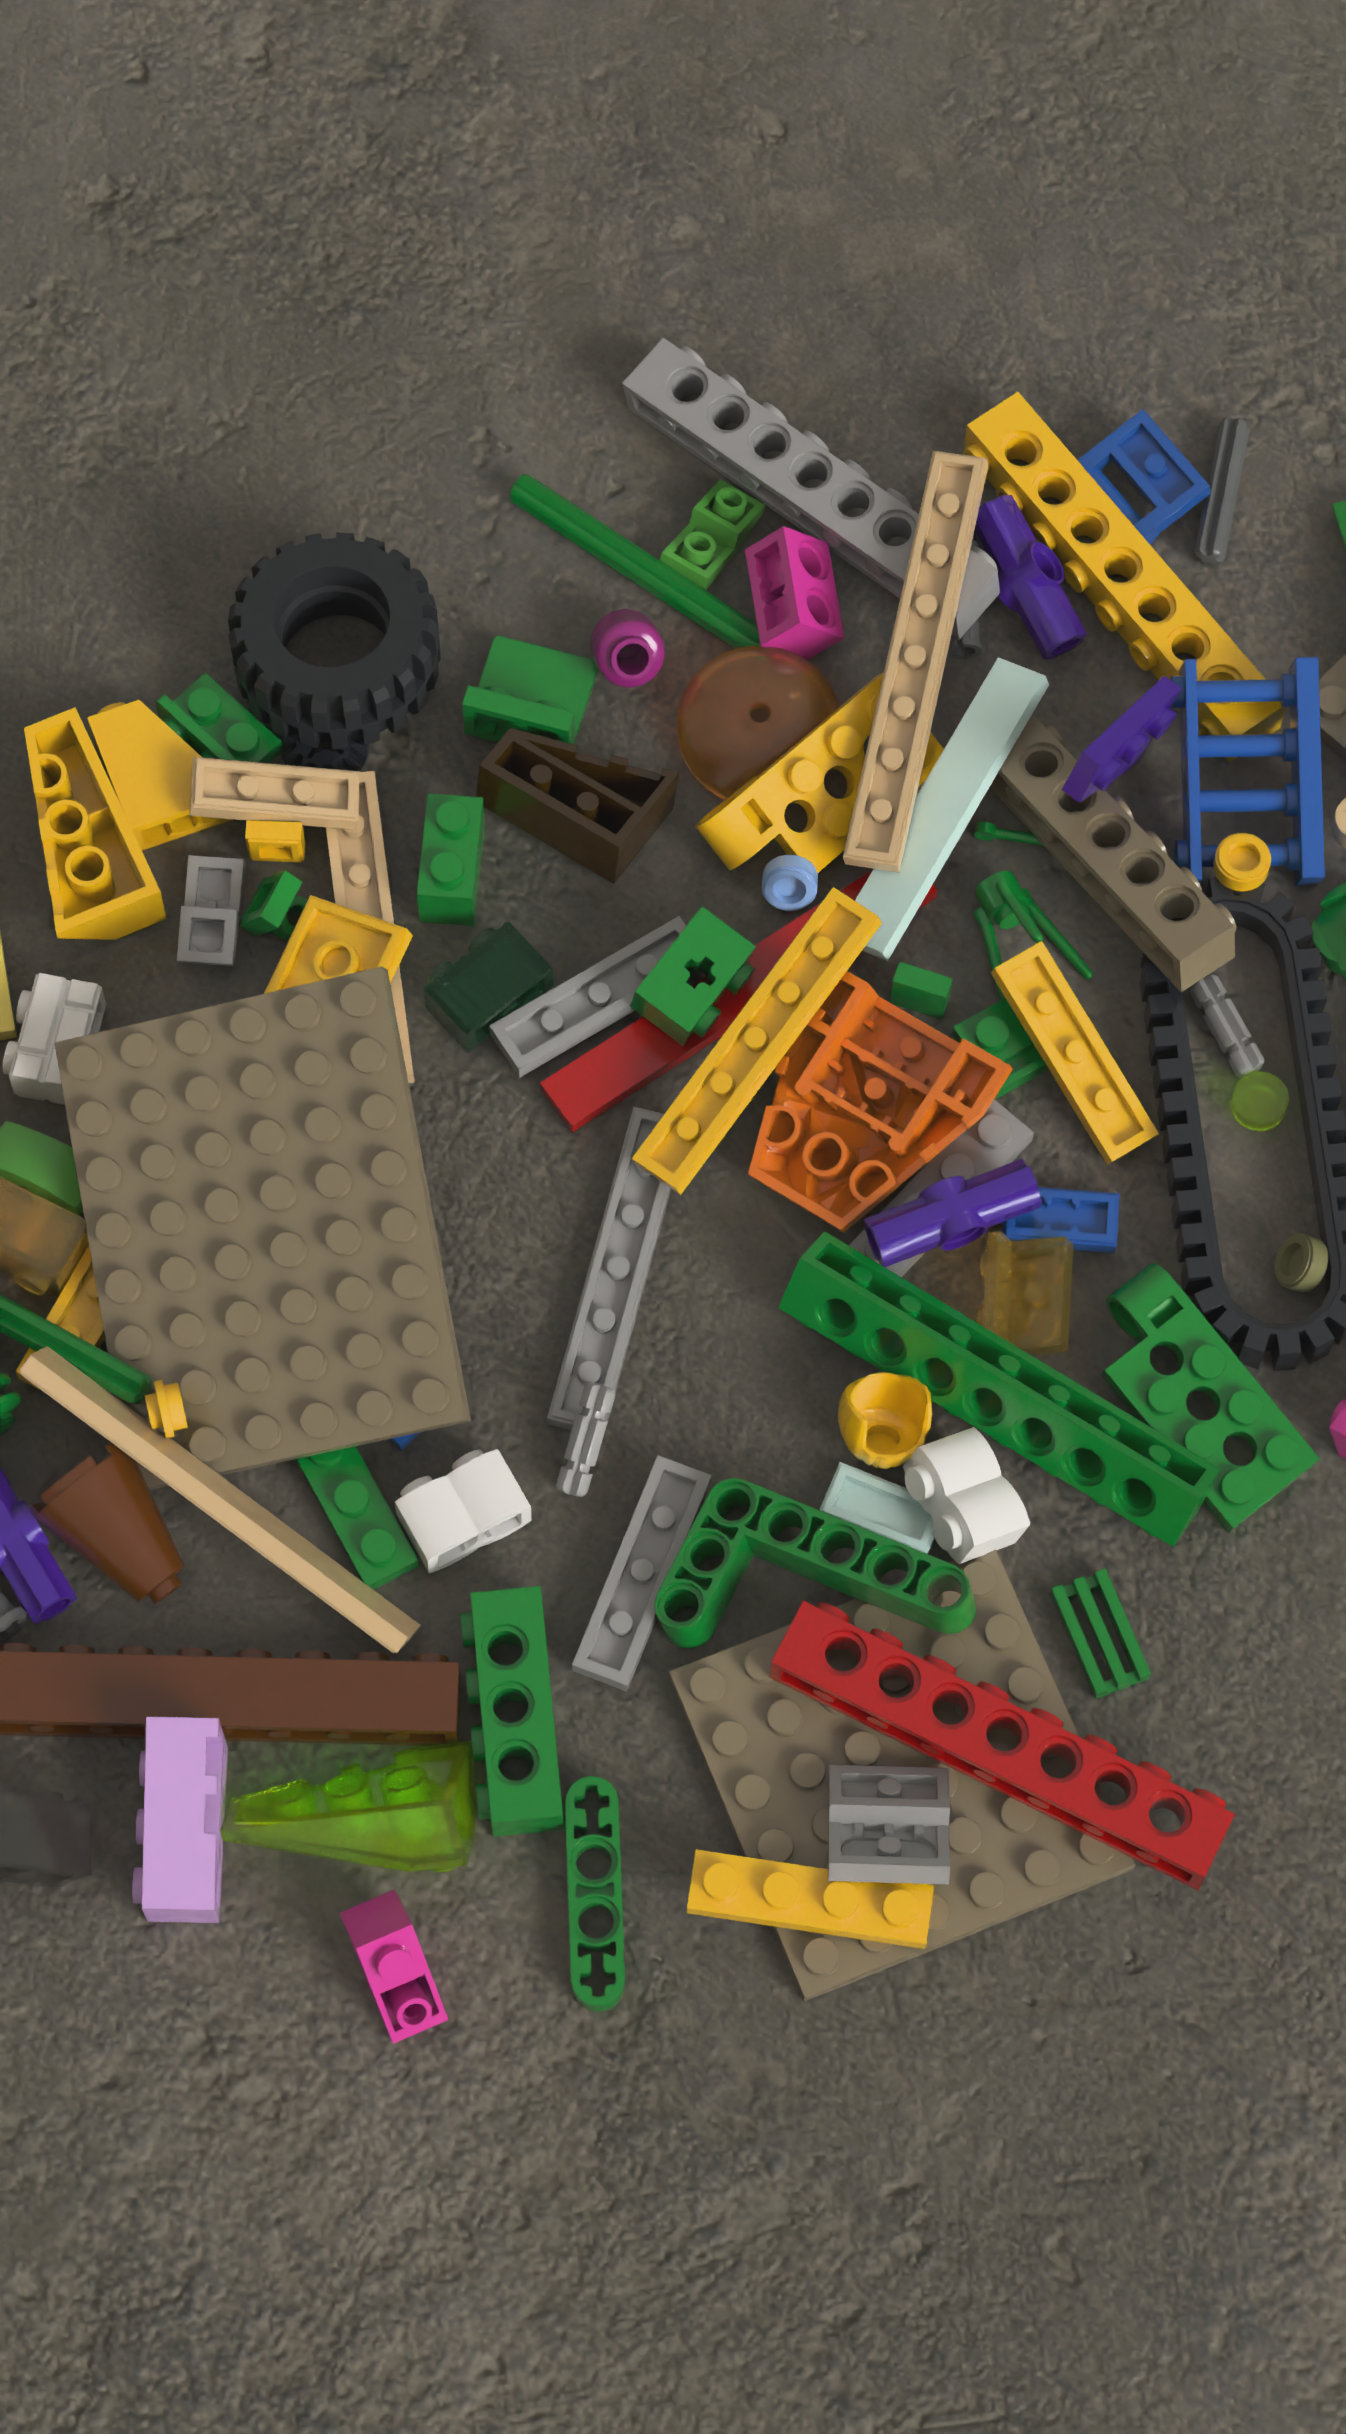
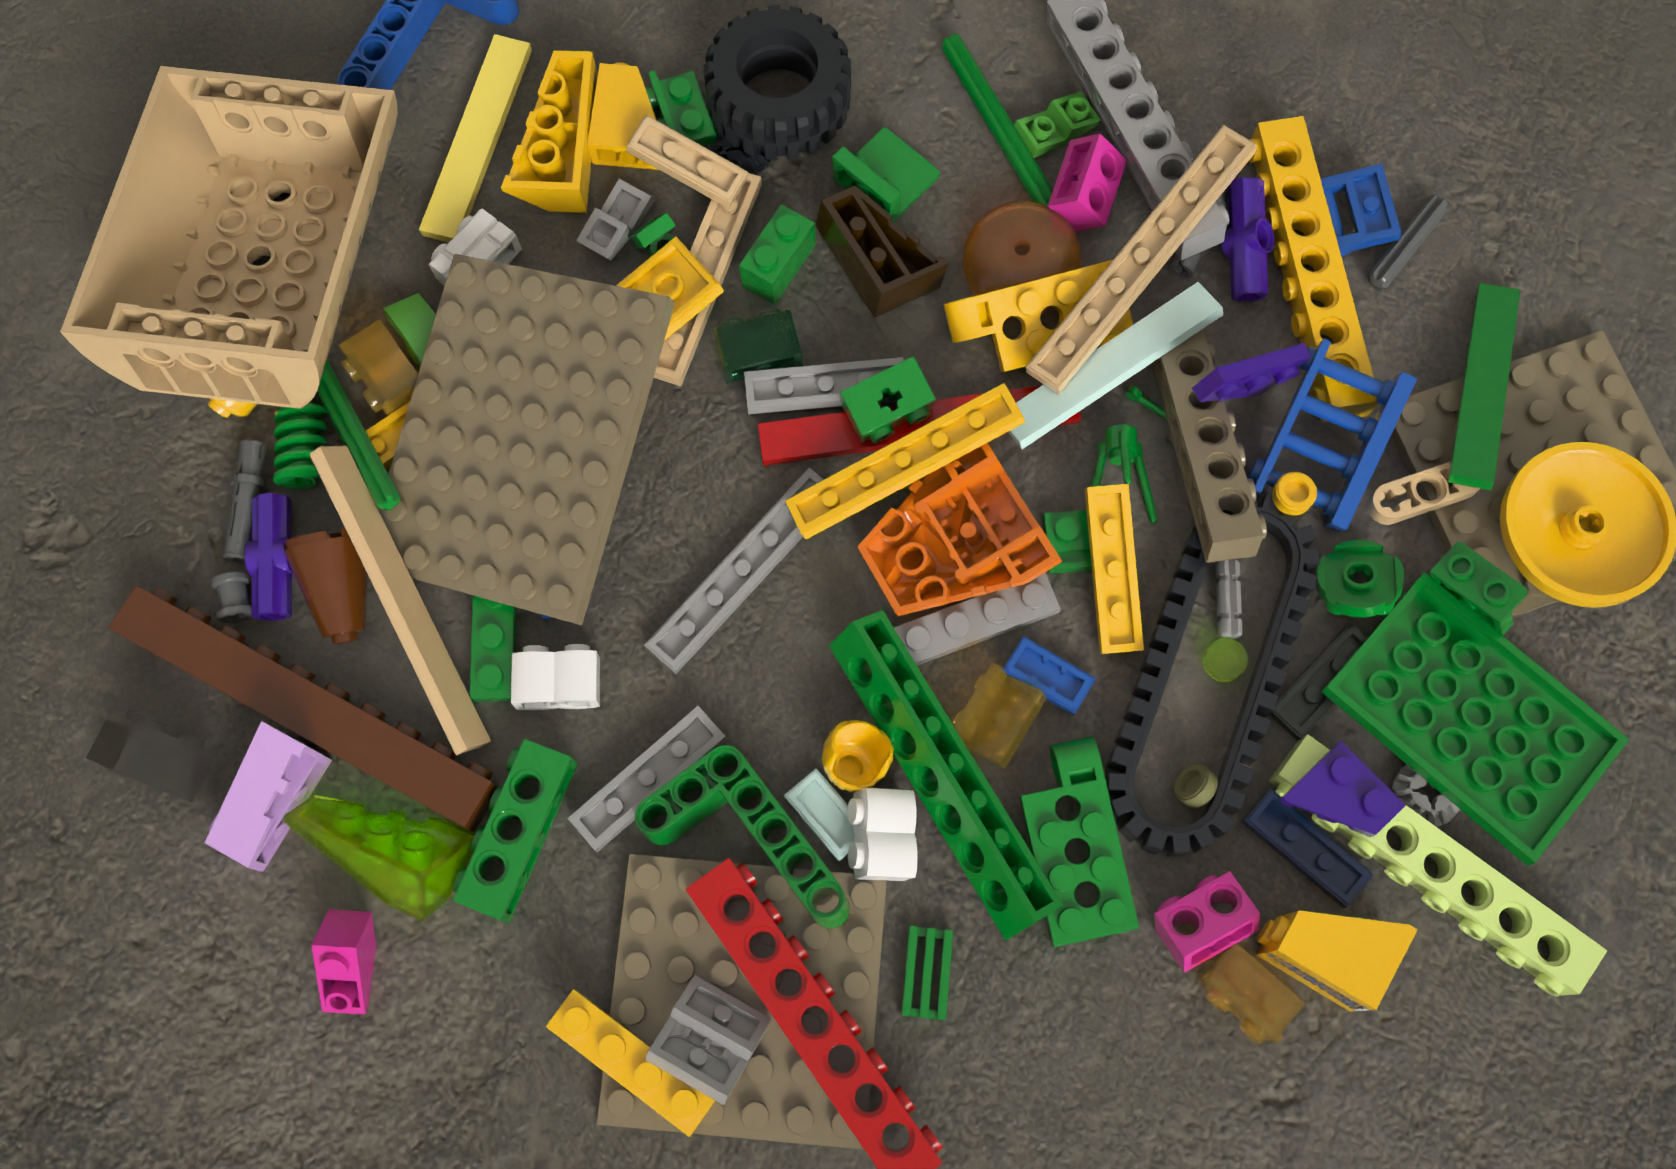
camera: 30 degrees right, 5 degrees up
(166, 1408) = (396, 522): yellow plate -> none
(275, 841) = (676, 193): yellow tile -> none
(585, 1439) = (658, 671): light grey axle -> none
(590, 1893) = (496, 975): green beam -> none
(627, 648) = (959, 182): magenta head -> none
(789, 882) = (986, 368): light blue tile -> none
(921, 990) = (1035, 479): green tile -> none
(952, 1213) = (974, 638): dark purple piece -> none

